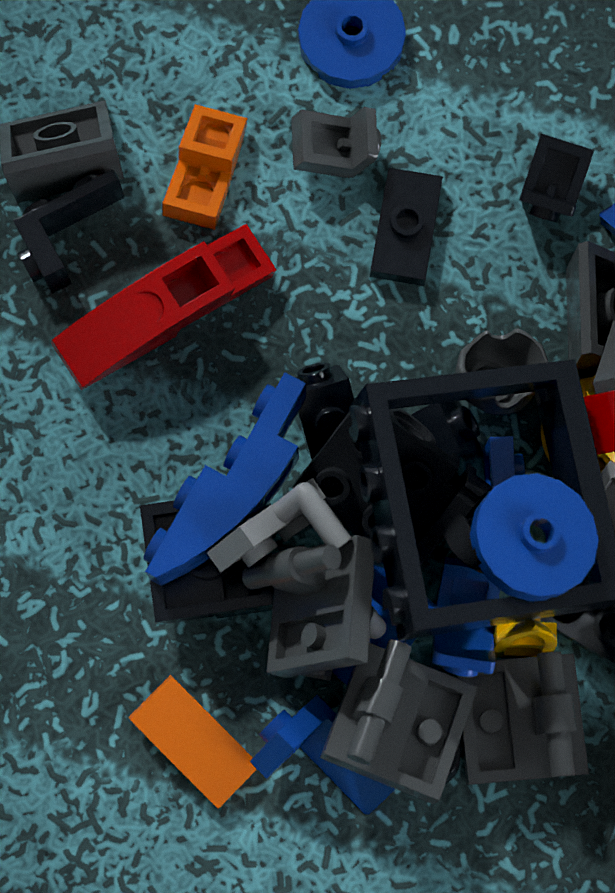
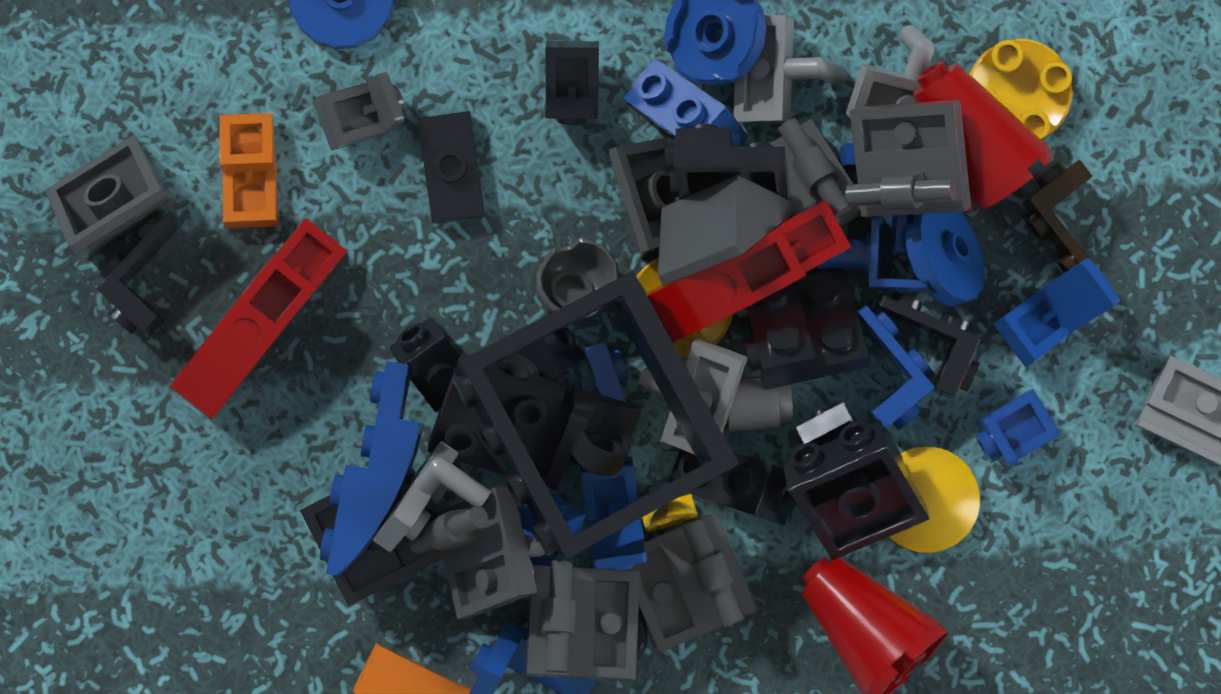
camera: 15 degrees left, 10 degrees up
(513, 557) = (619, 461): blue plate -> none

